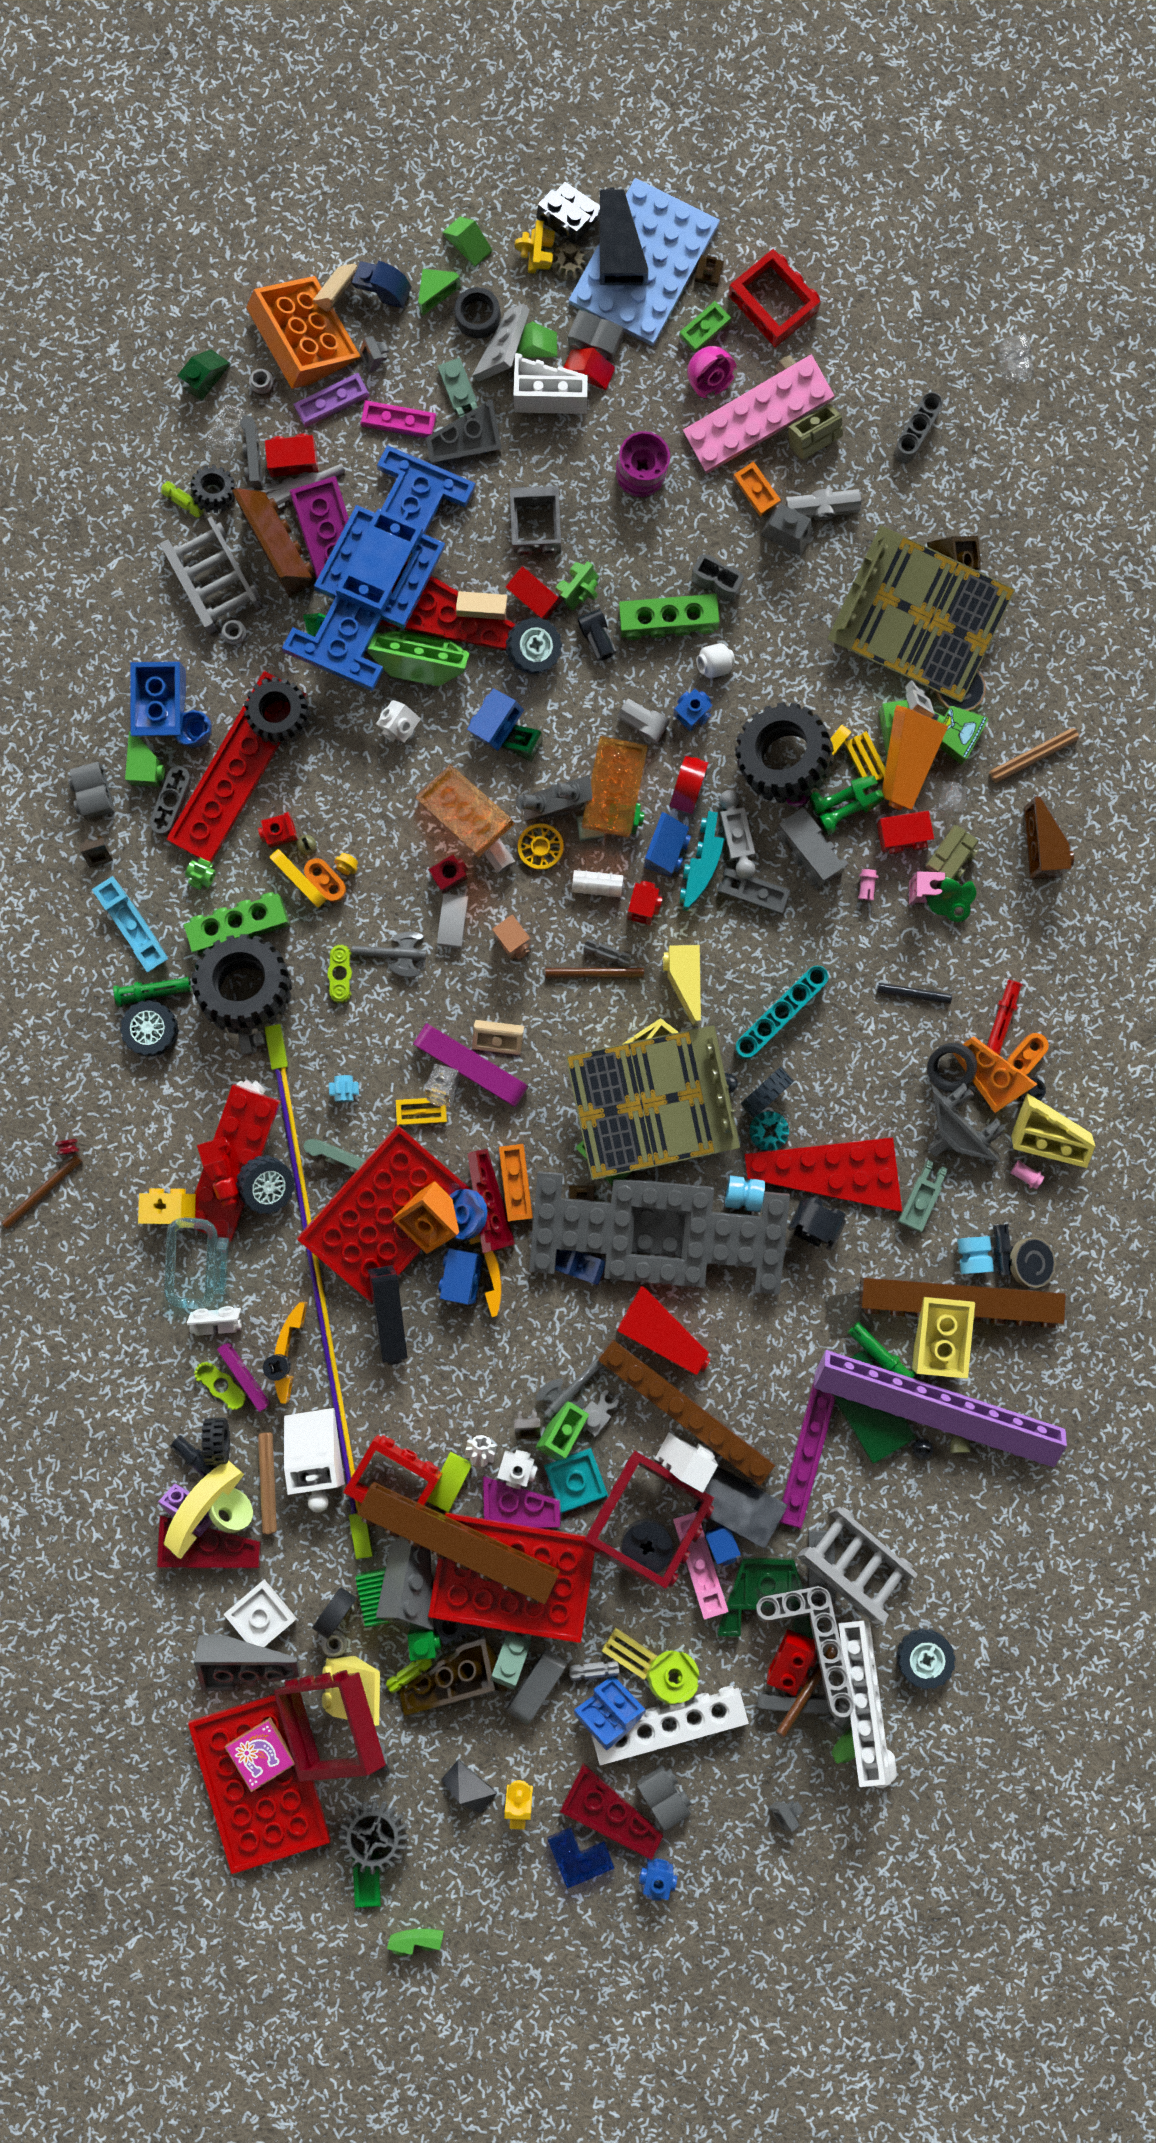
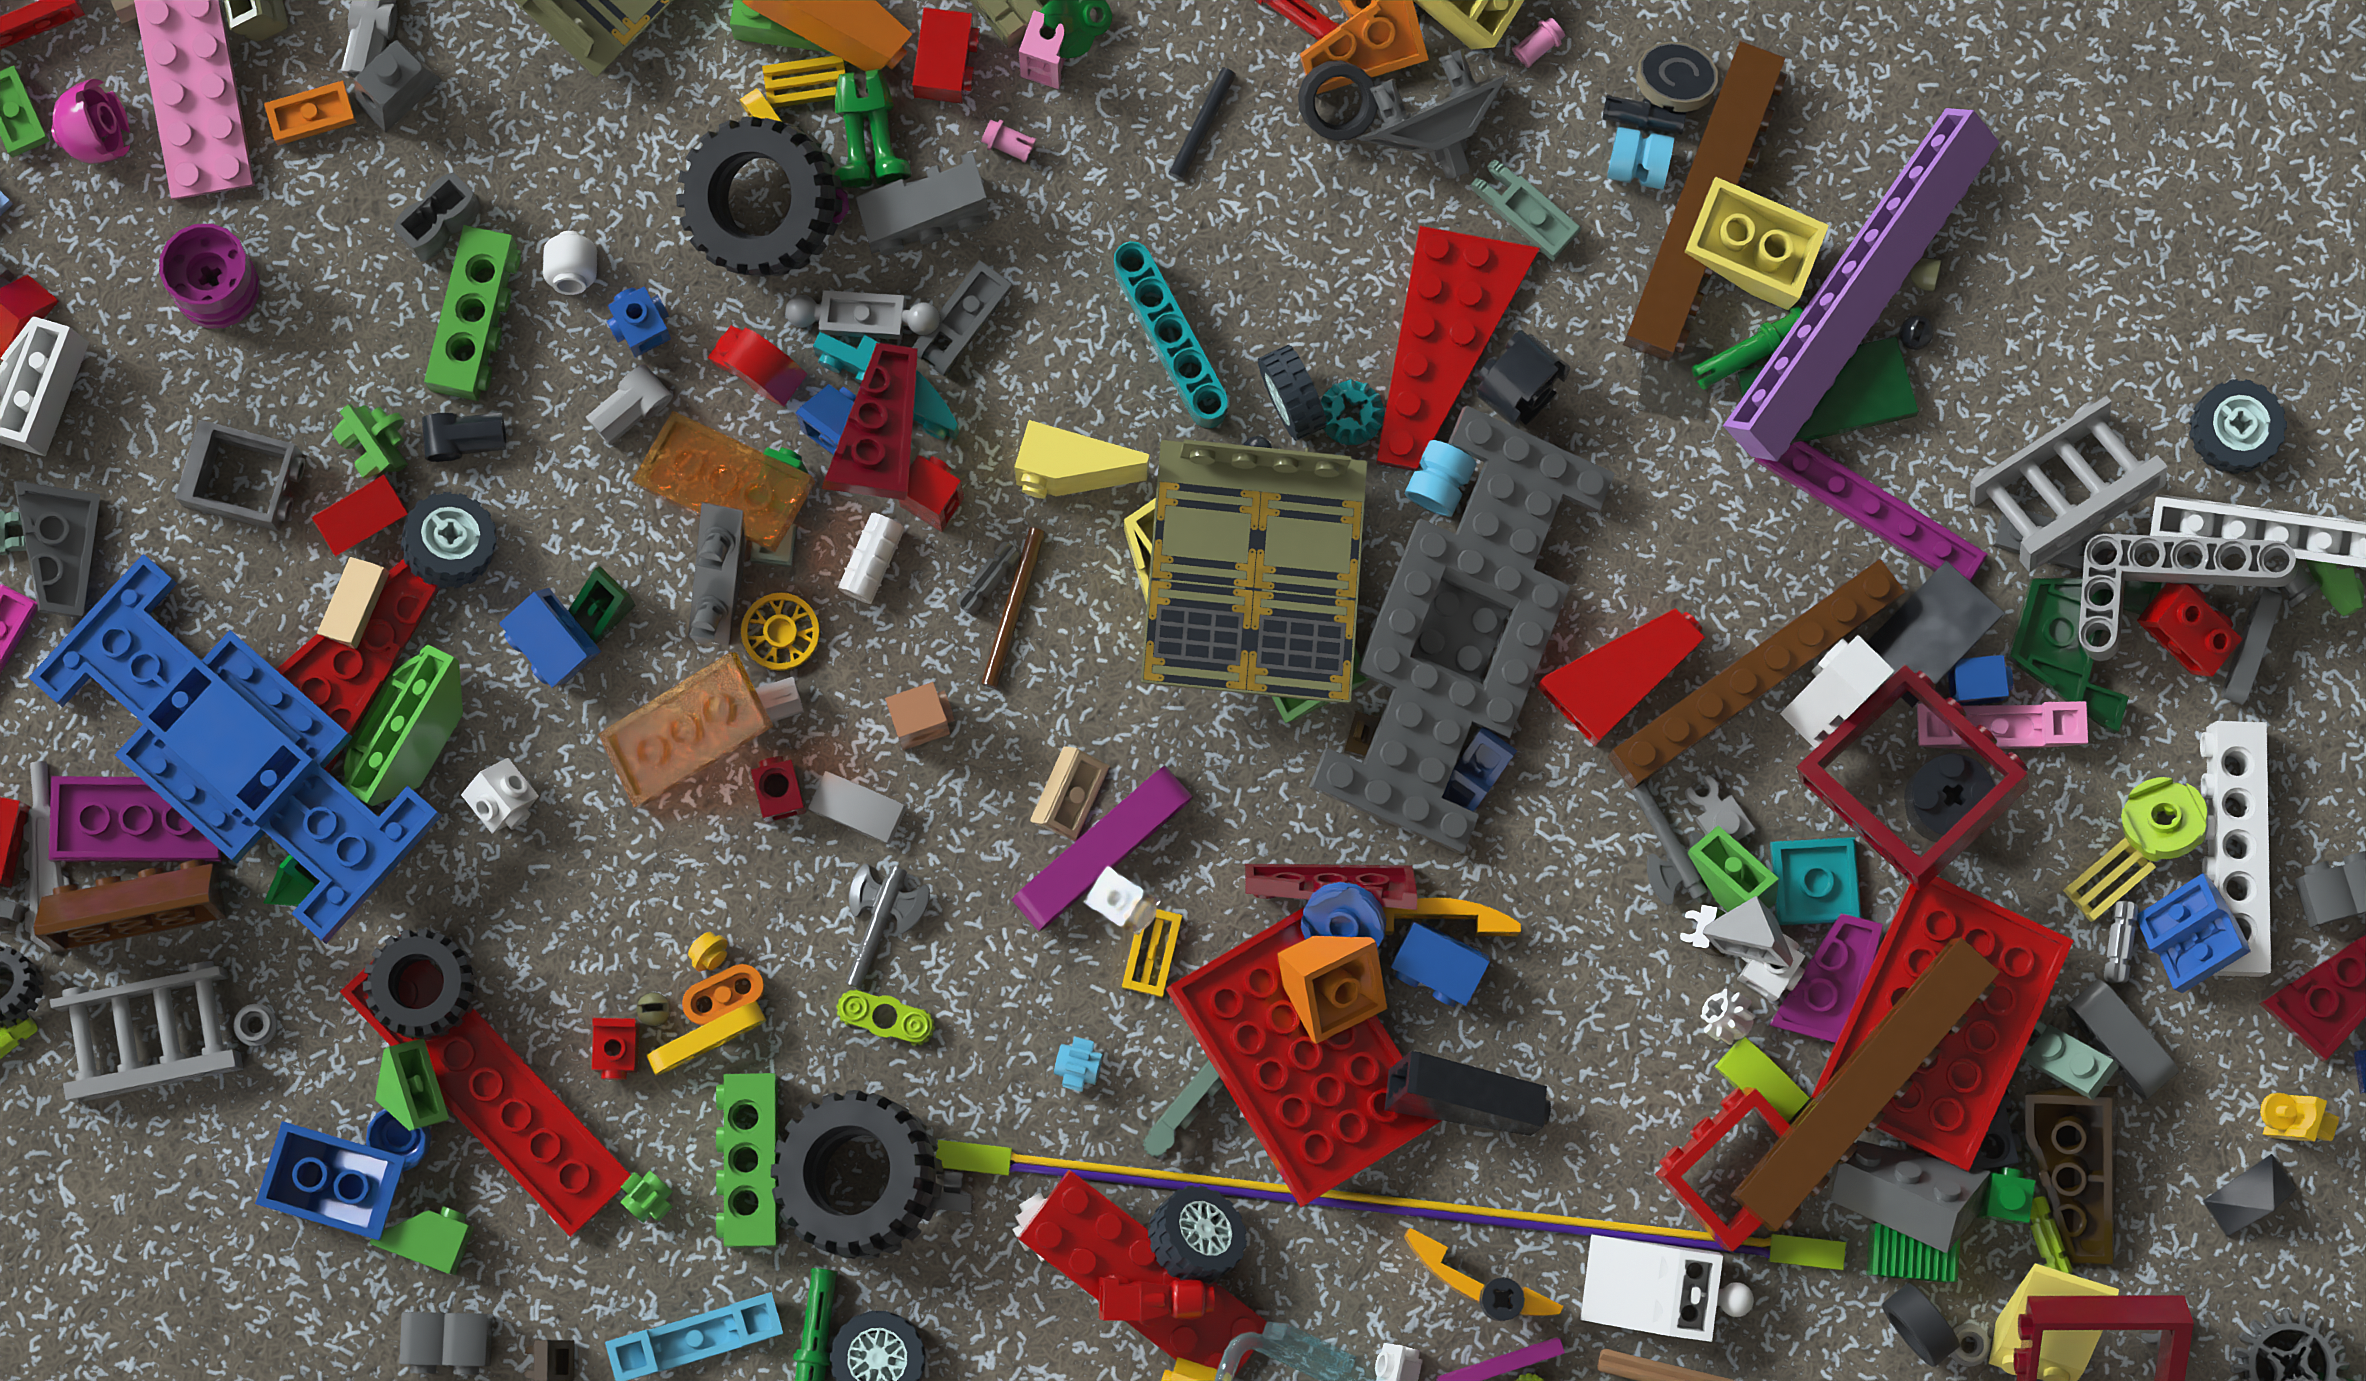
camera: 80 degrees left, 5 degrees down
(175, 810) = (473, 1202): dark grey beam -> none
(219, 725) = (409, 1086): none -> bright green slope
(515, 1182) = (1314, 833): orange plate -> none
(529, 1451) = (1750, 933): none -> light grey slope
(661, 862) = (878, 432): none -> dark red wing
(803, 1697) = (2249, 626): reddish brown bar -> none

